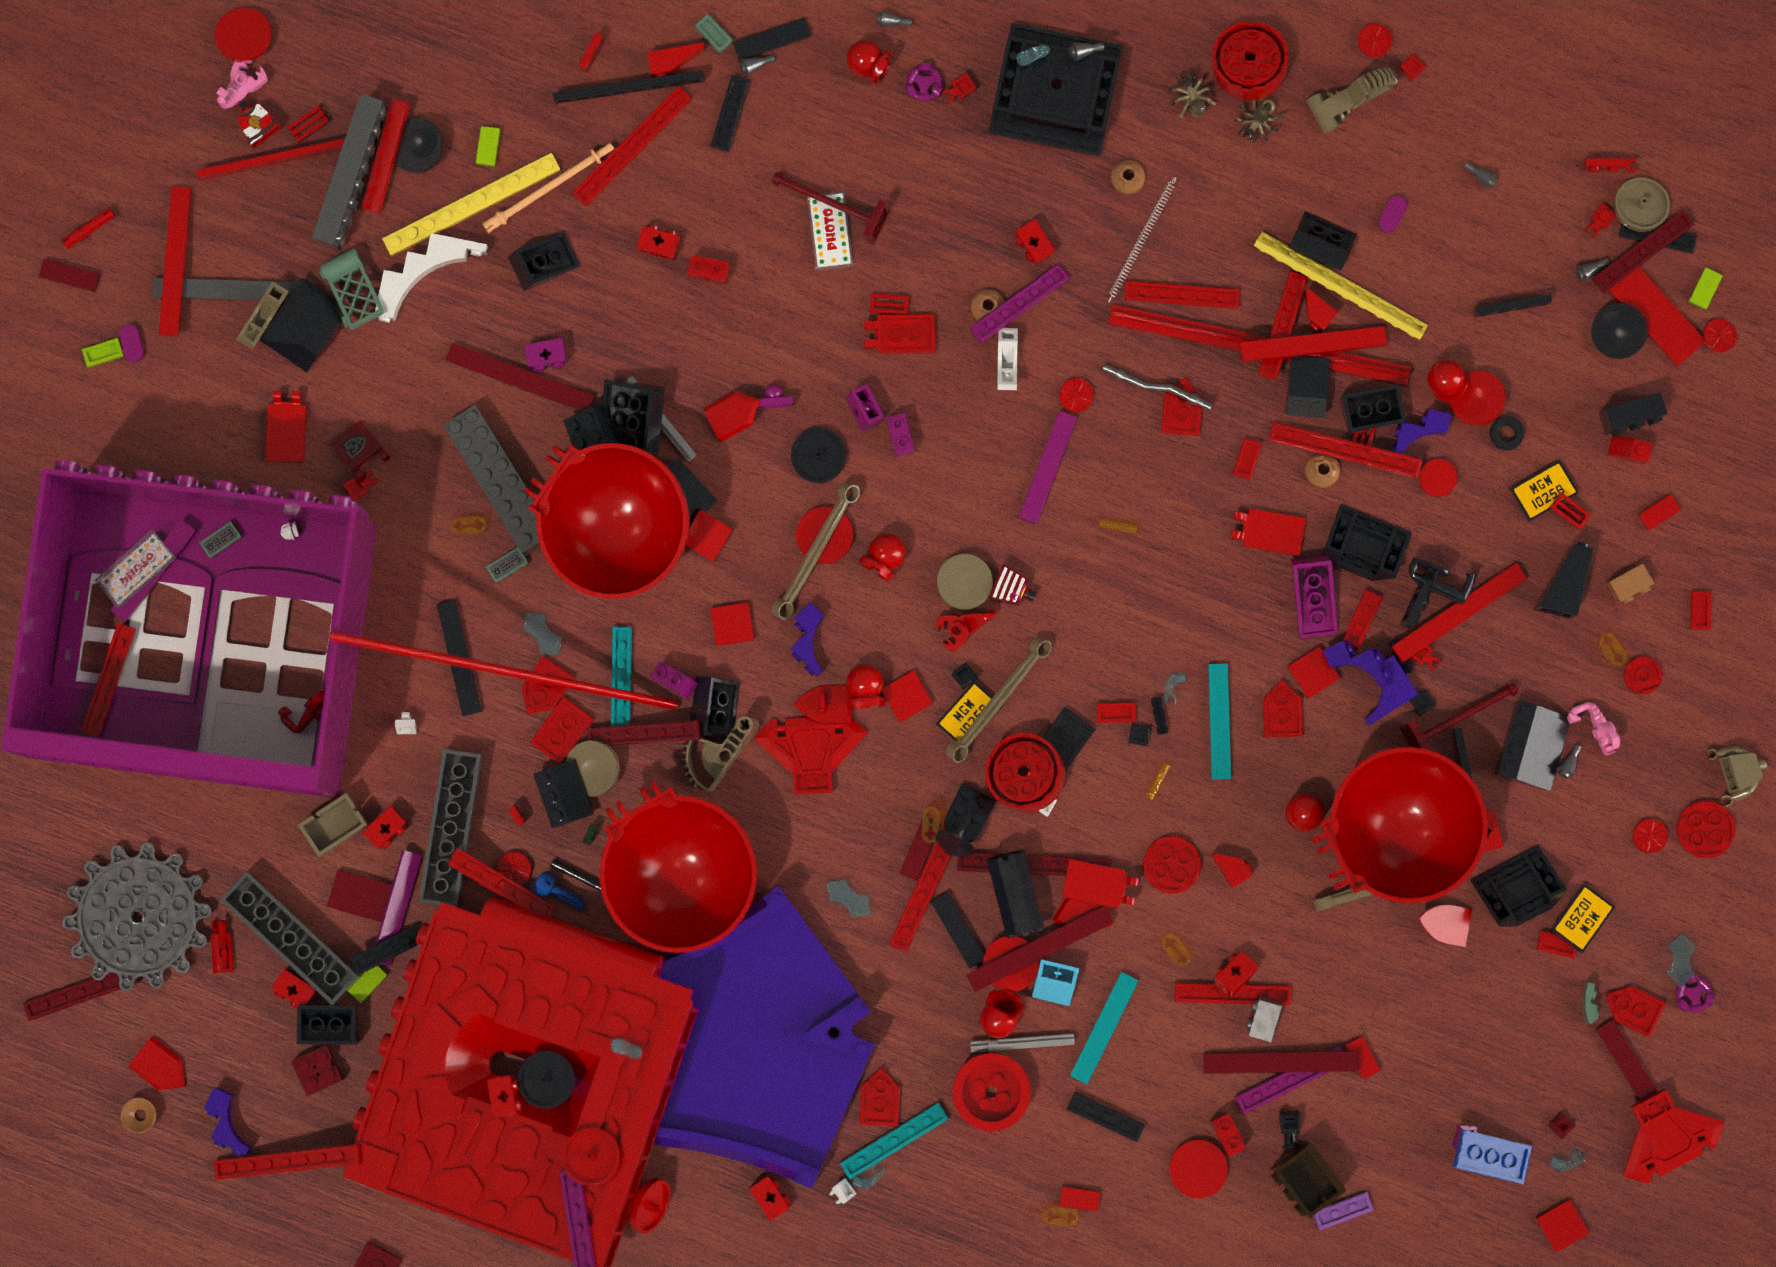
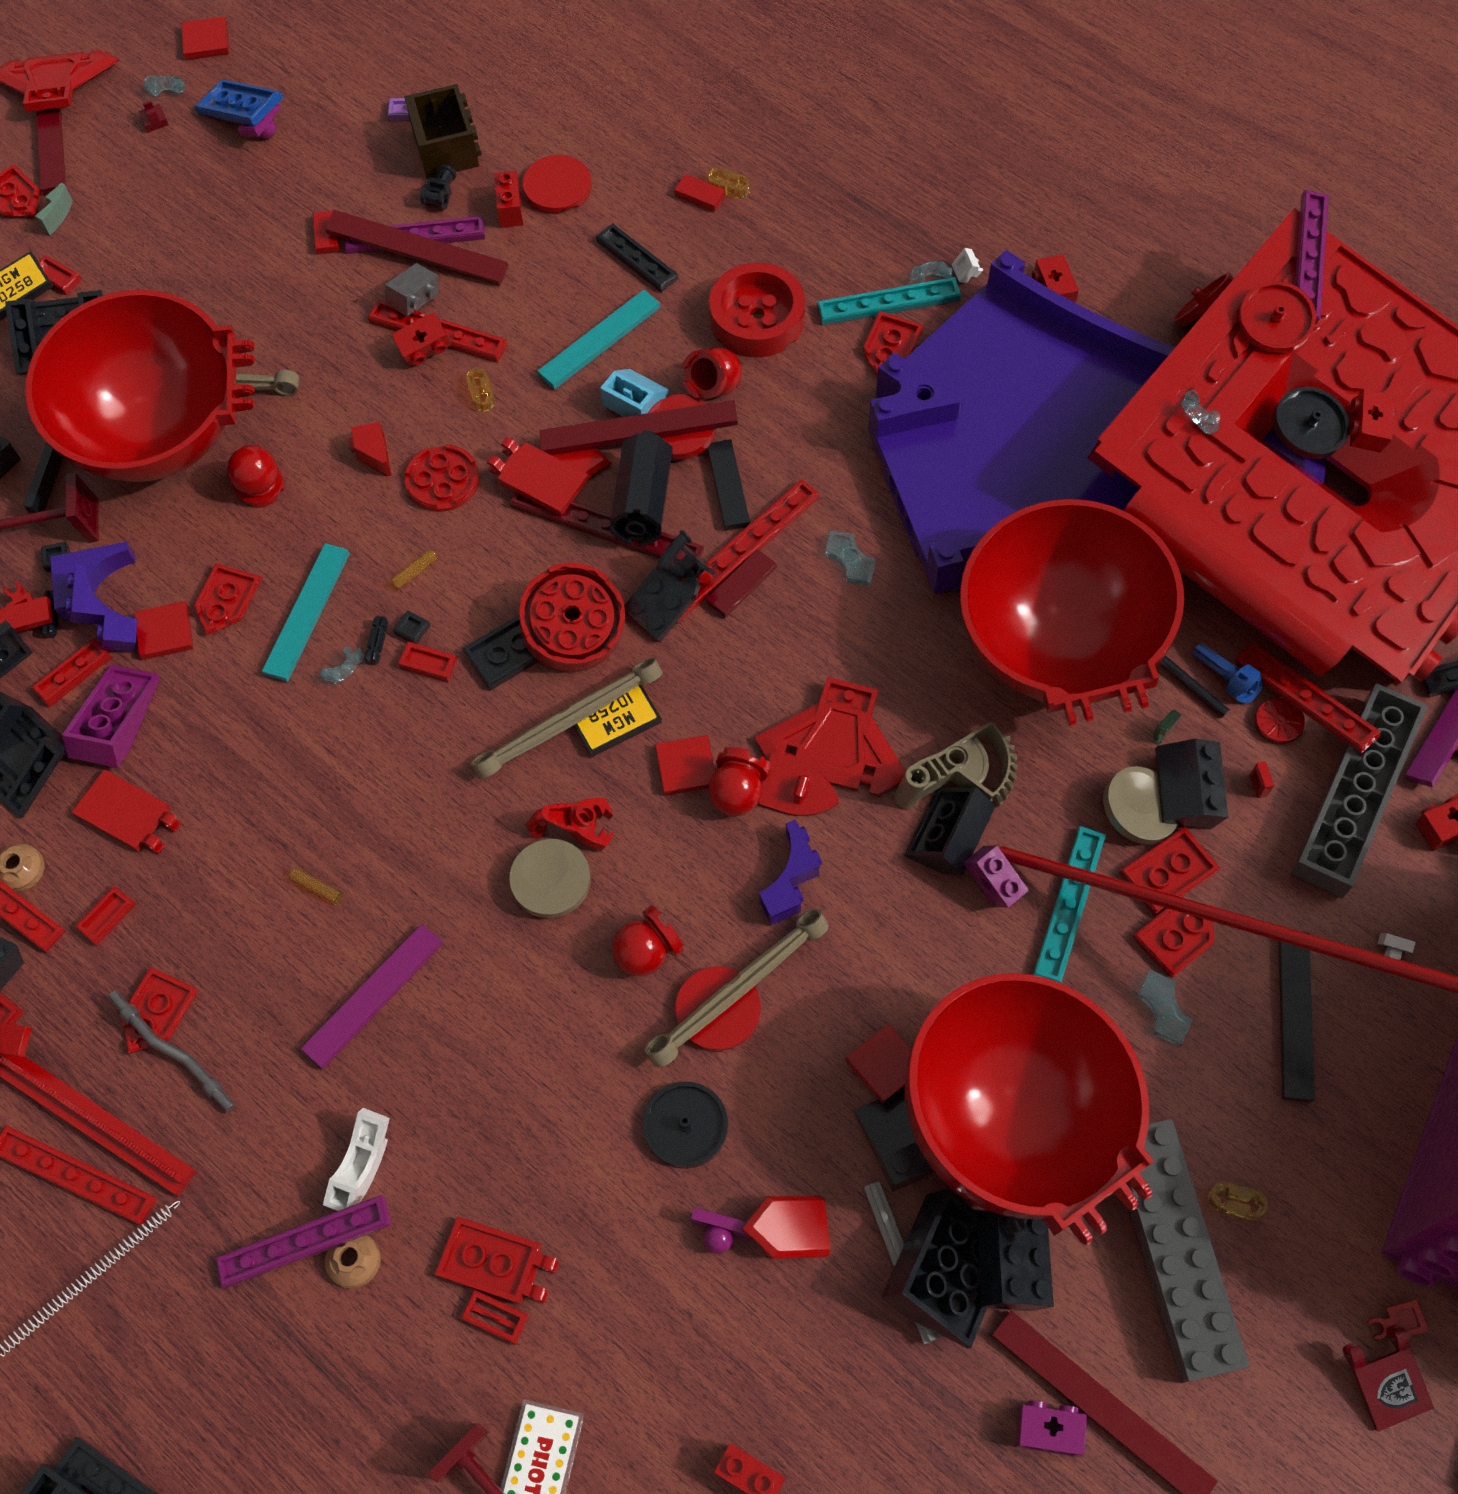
camera: 160 degrees left, 20 degrees down
(507, 565) = (1197, 1121): tile -> none
(646, 733) = (1055, 821): dark red tile -> none
(732, 624) = (889, 932): red tile -> none
(864, 407) = (591, 1165): magenta brick -> none
(900, 435) = (556, 1108): magenta brick -> none
(925, 824) = (720, 603): clear yellow beam -> none
(964, 676) = (600, 763): black tile -> none
(1011, 587) = (491, 851): torso -> none
(1021, 1042) = (687, 347): light grey axle -> none
(1033, 232) = (228, 1319): red brick -> none
(1076, 395) = (287, 1082): red wheel -> none
(1127, 186) = (70, 1392): medium nougat piece -> none

